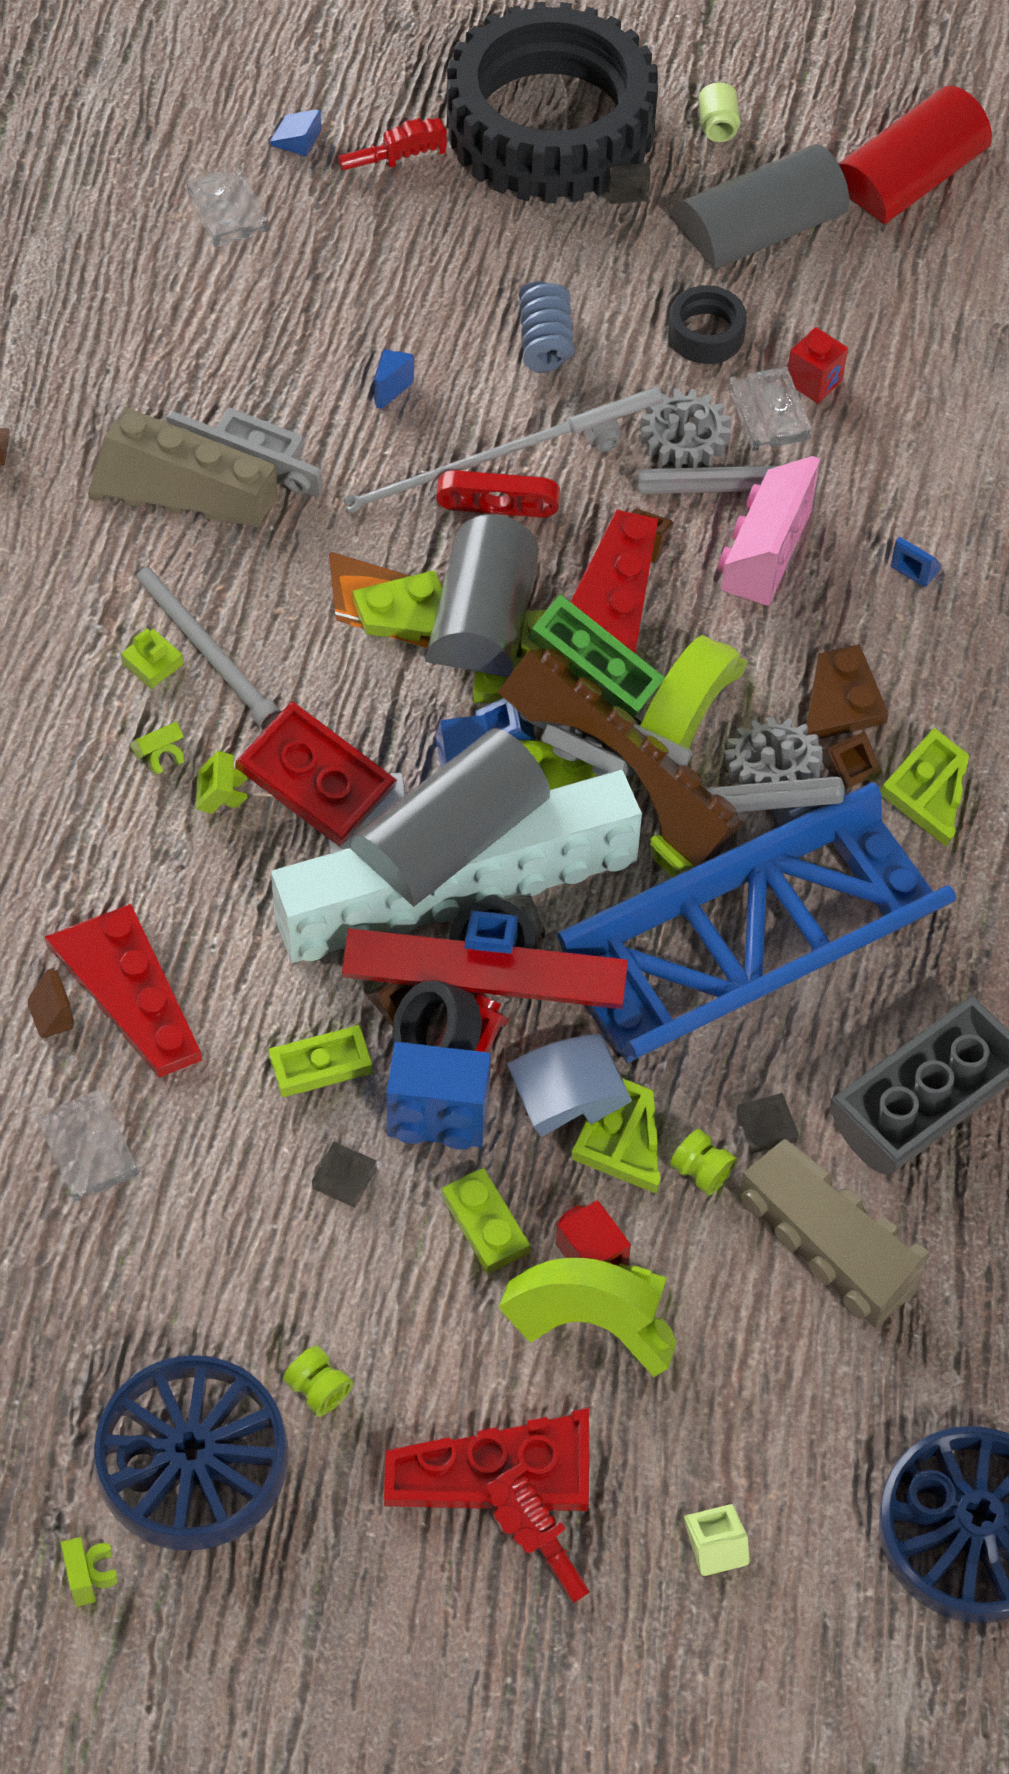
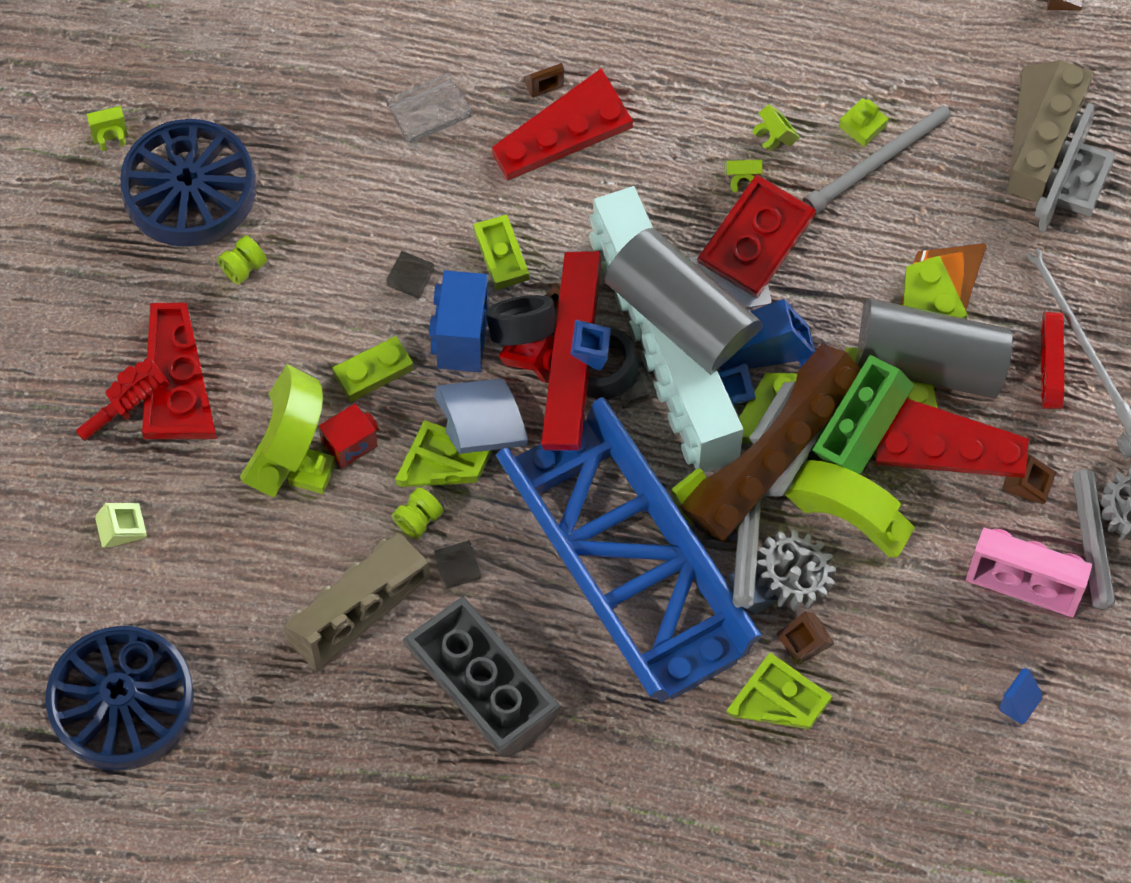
camera: 90 degrees right, 5 degrees up
(844, 694) = (872, 633): reddish brown wing -> none

